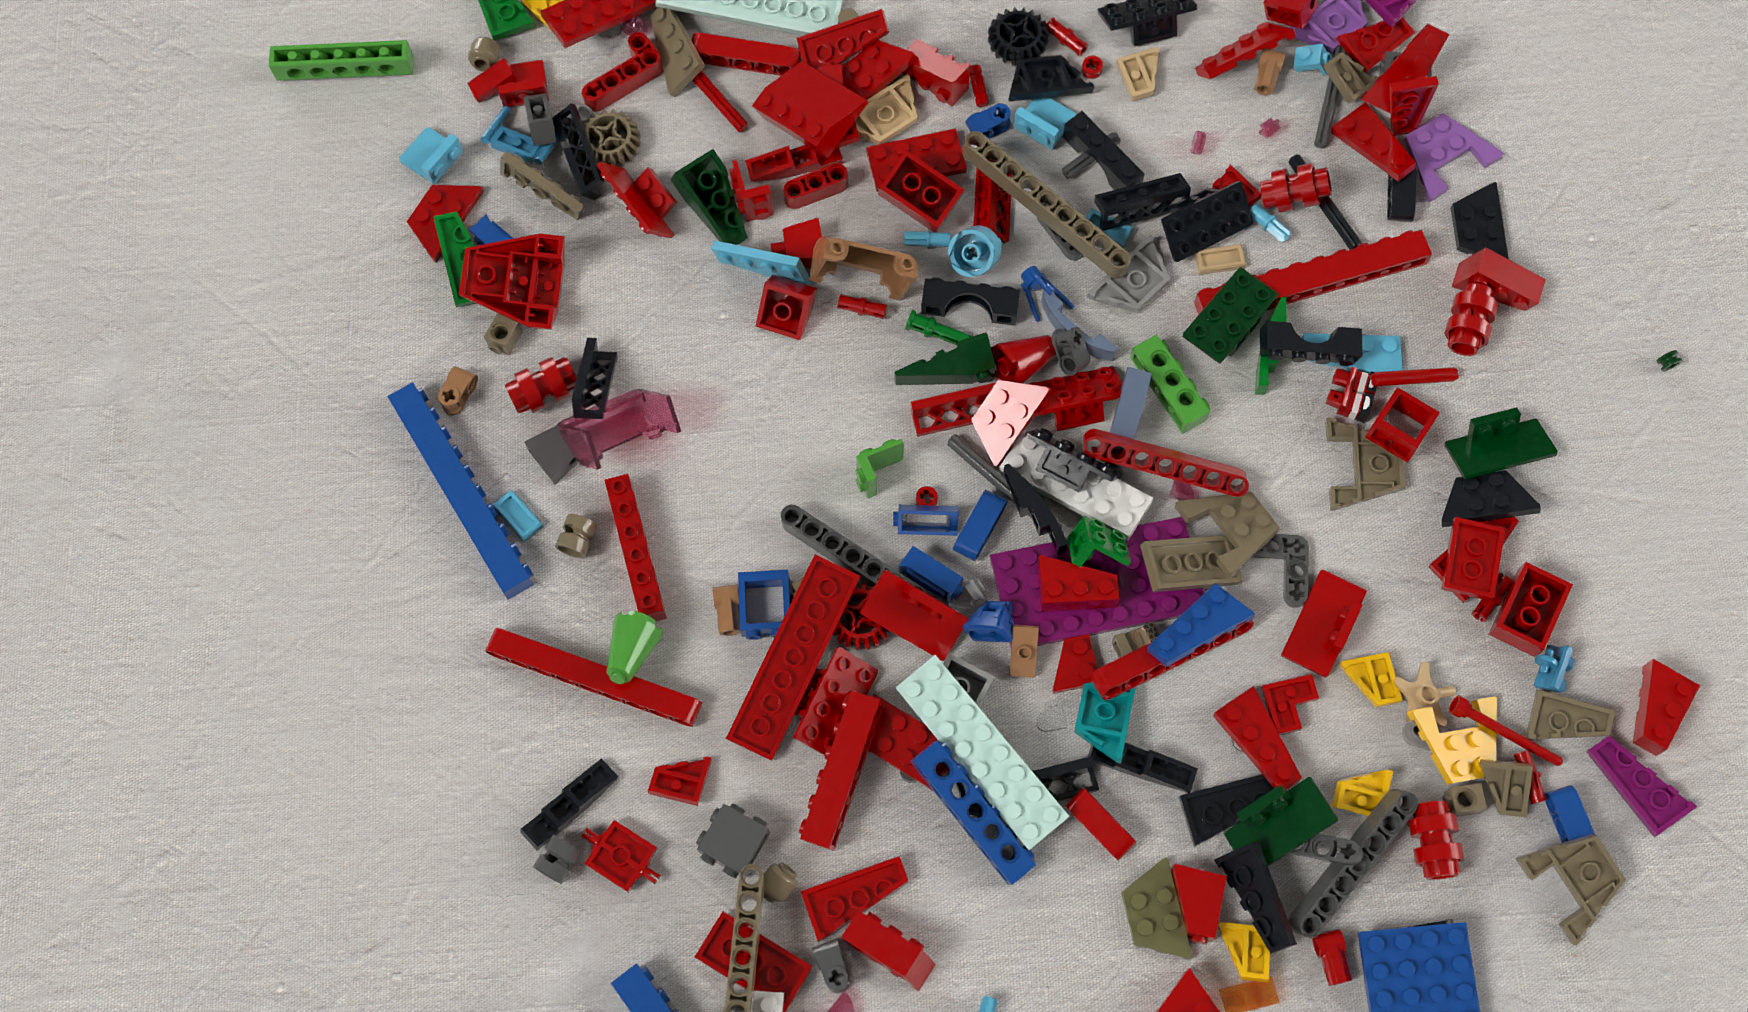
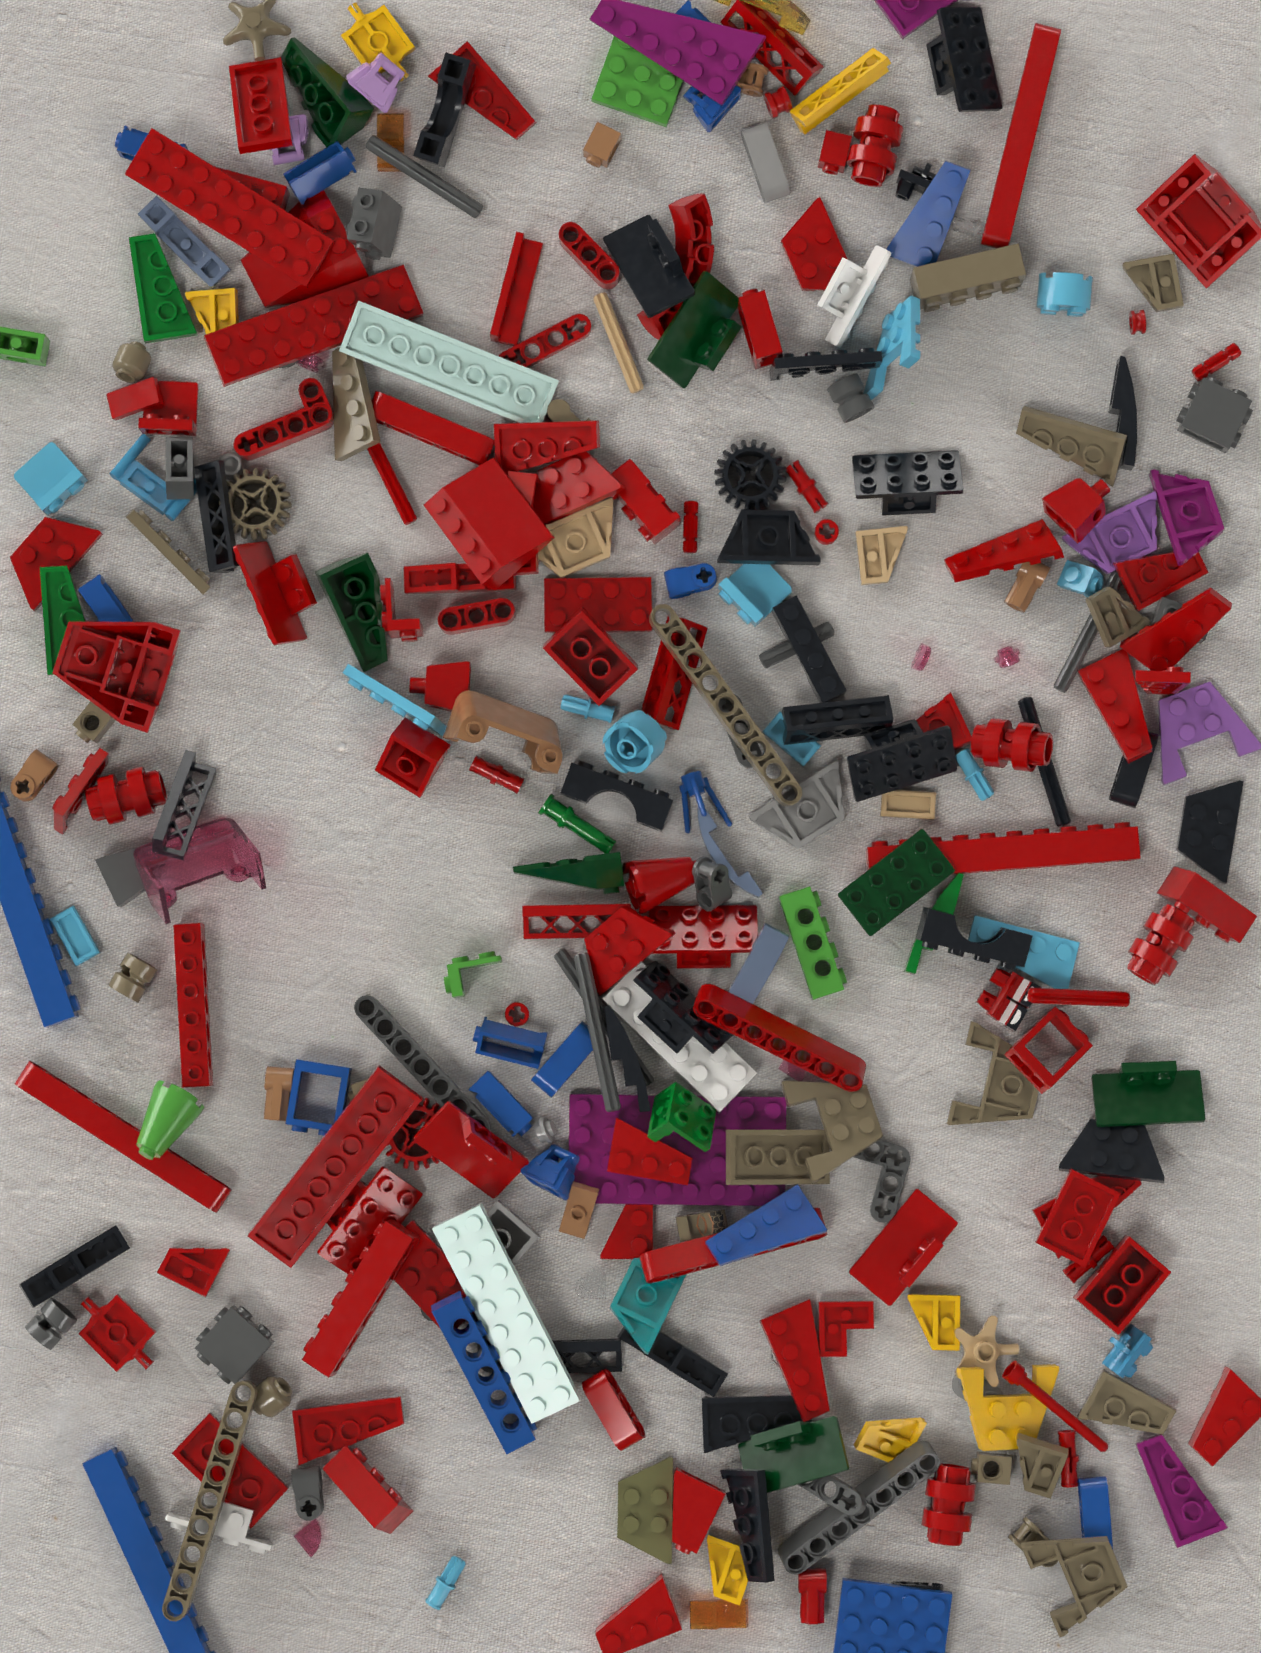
camera: 15 degrees right, 15 degrees up
(493, 399) = (71, 802): none -> red wing
(1003, 492) = (597, 1032): none -> dark grey axle
(1509, 859) = (1034, 1534): none -> dark tan piece

